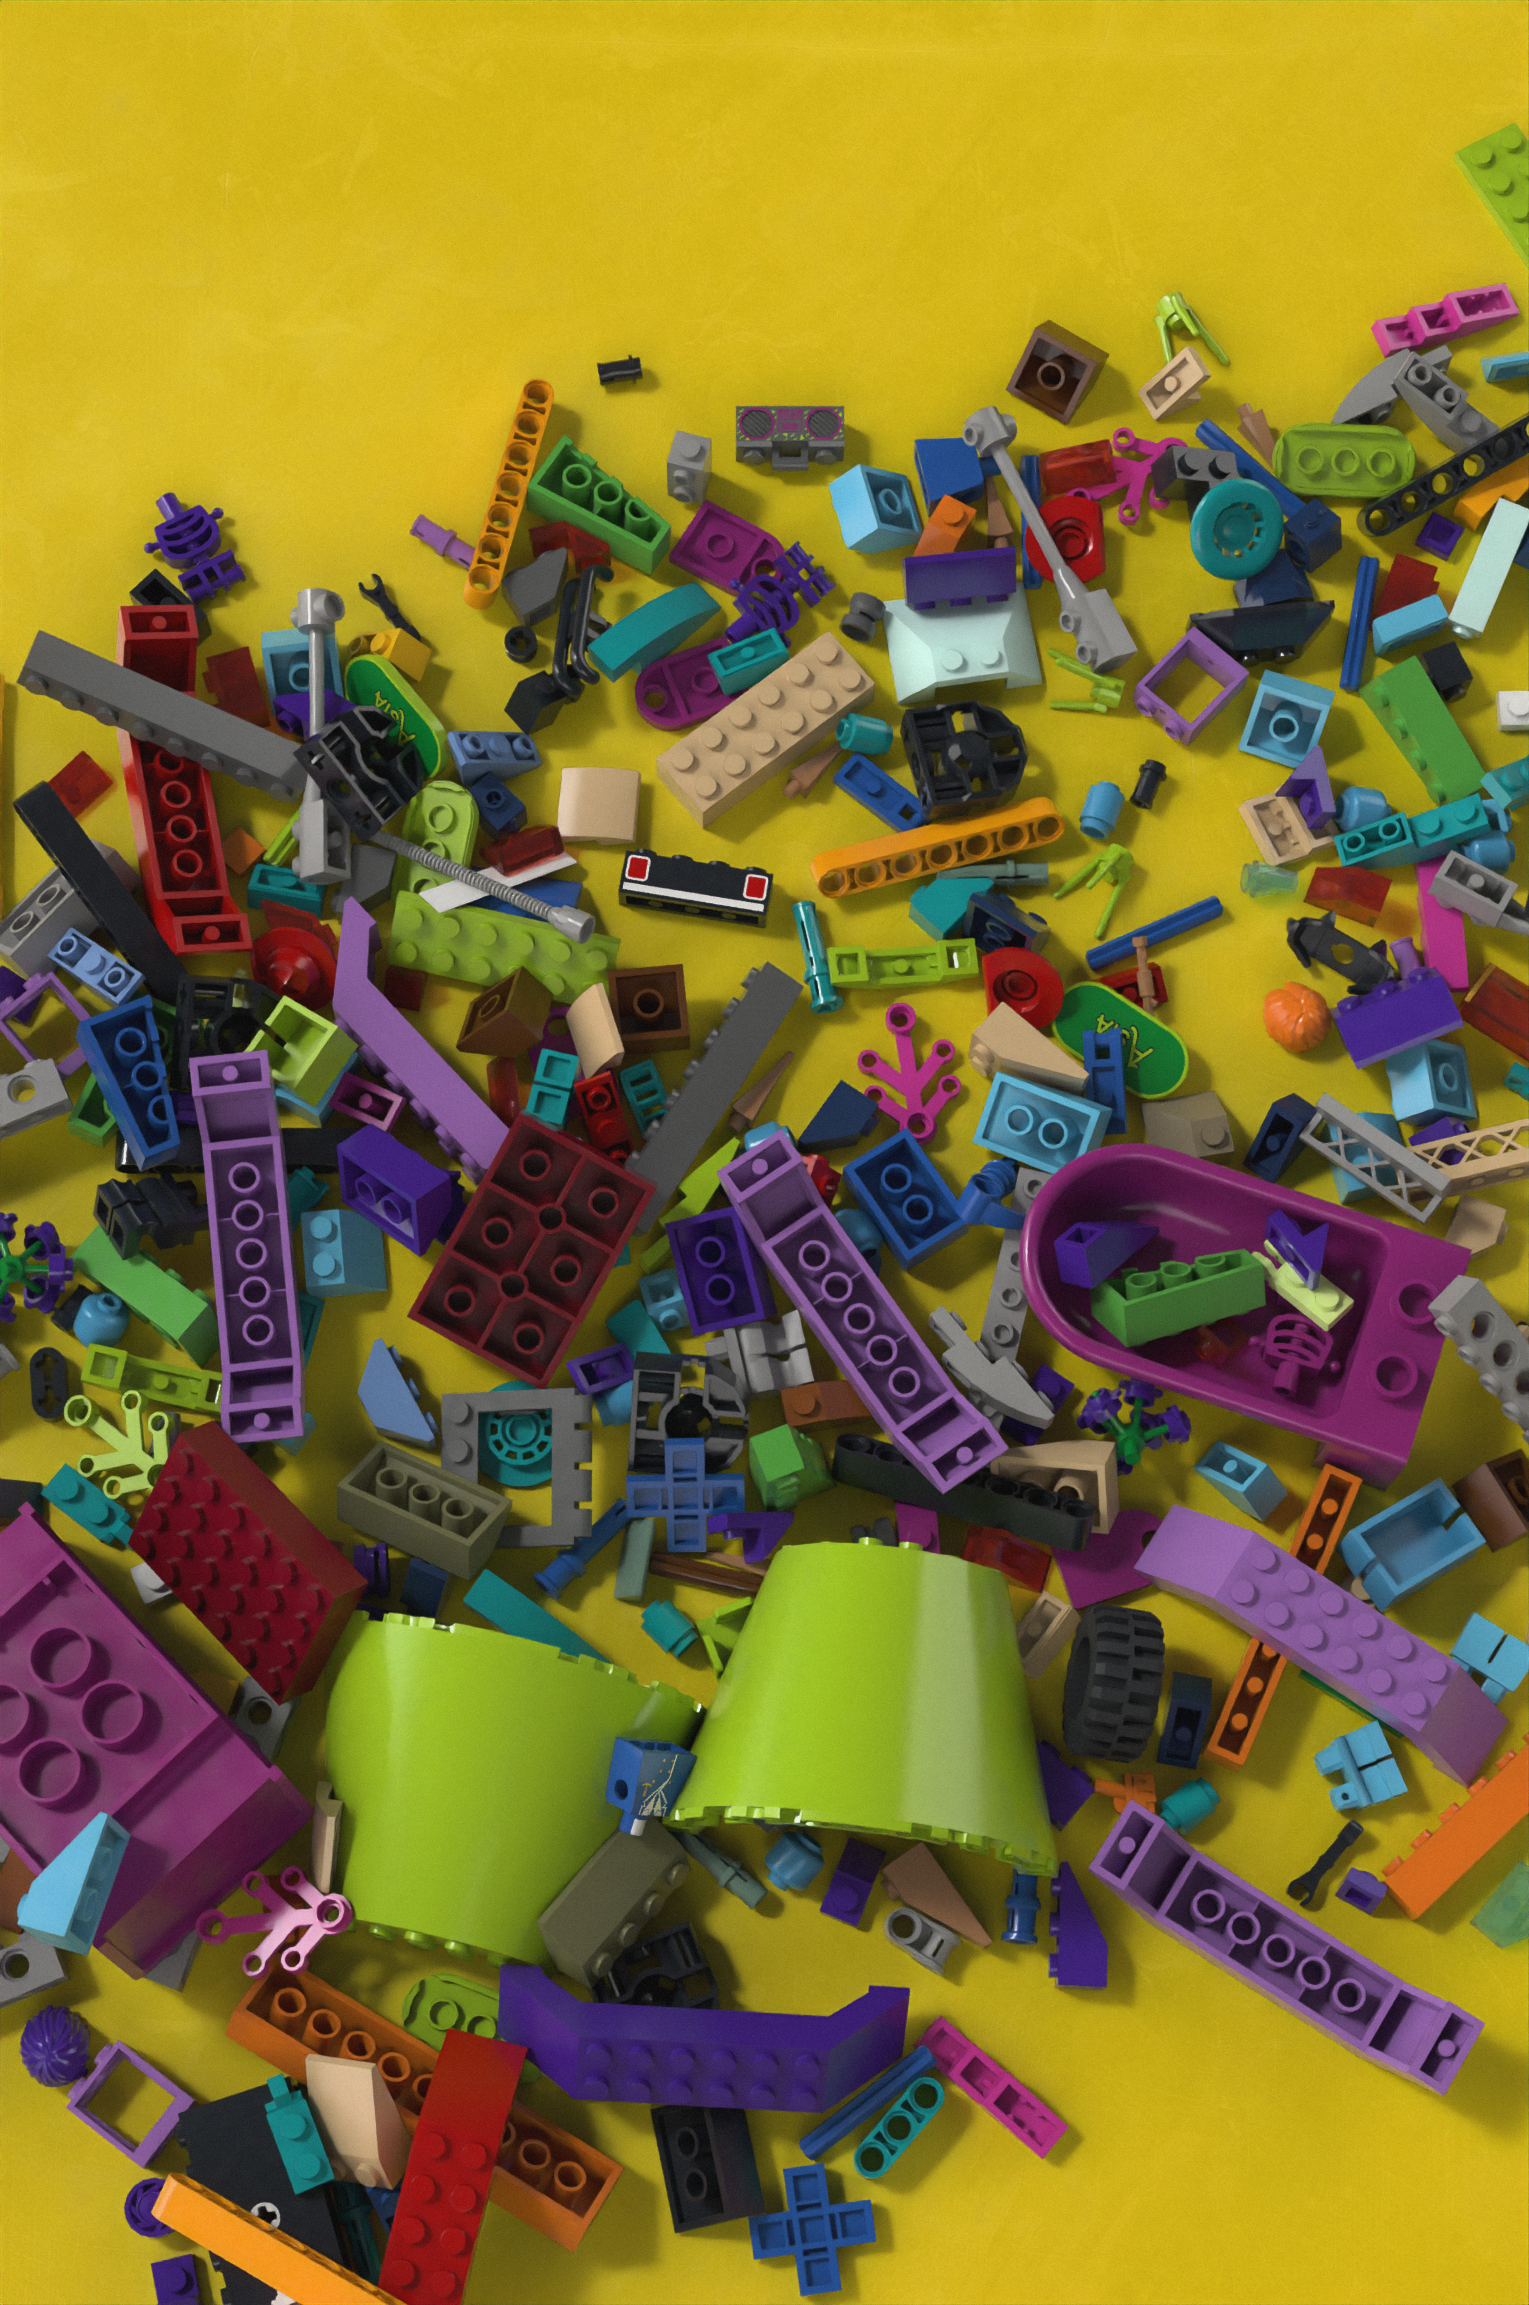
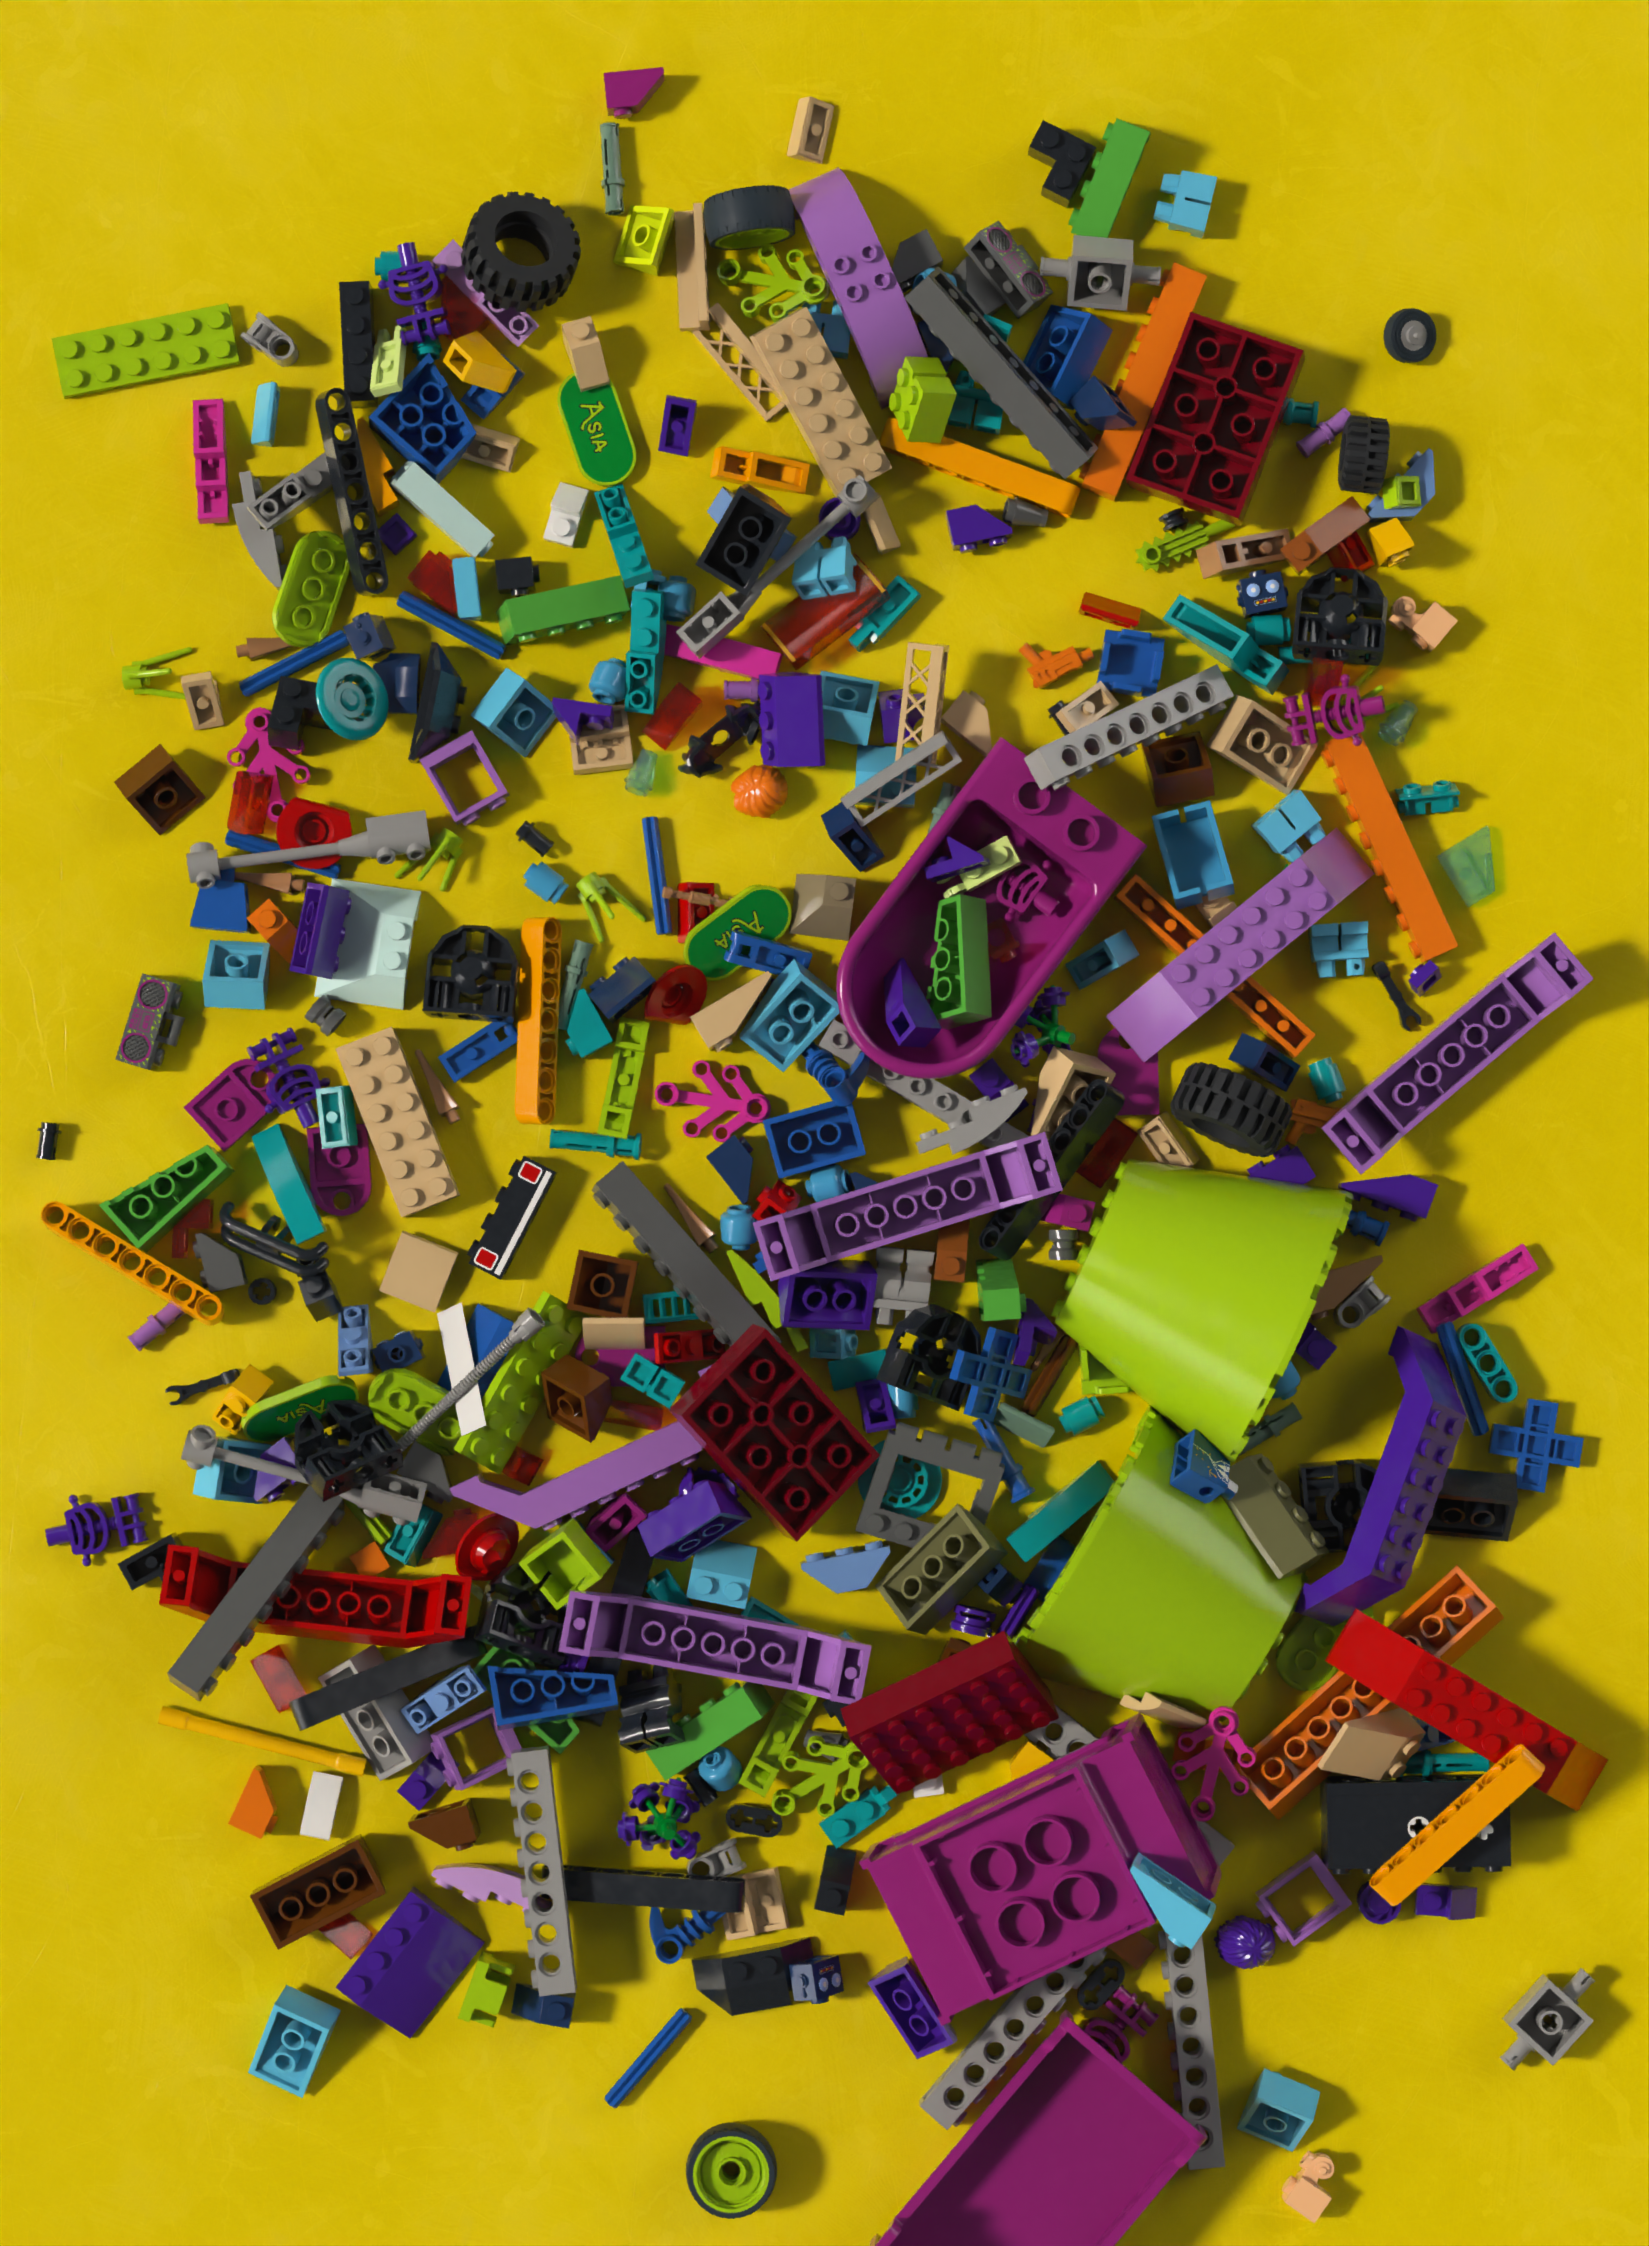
camera: 75 degrees left, 15 degrees up
(236, 686) = (237, 1527): clear red brick -> none
(297, 2137) = (1372, 1790): teal hinge -> none
(523, 849) = (440, 1341): clear red slope -> none
(689, 467) = (158, 1114): light grey brick -> none
(864, 734) = (426, 1046): teal brick -> none

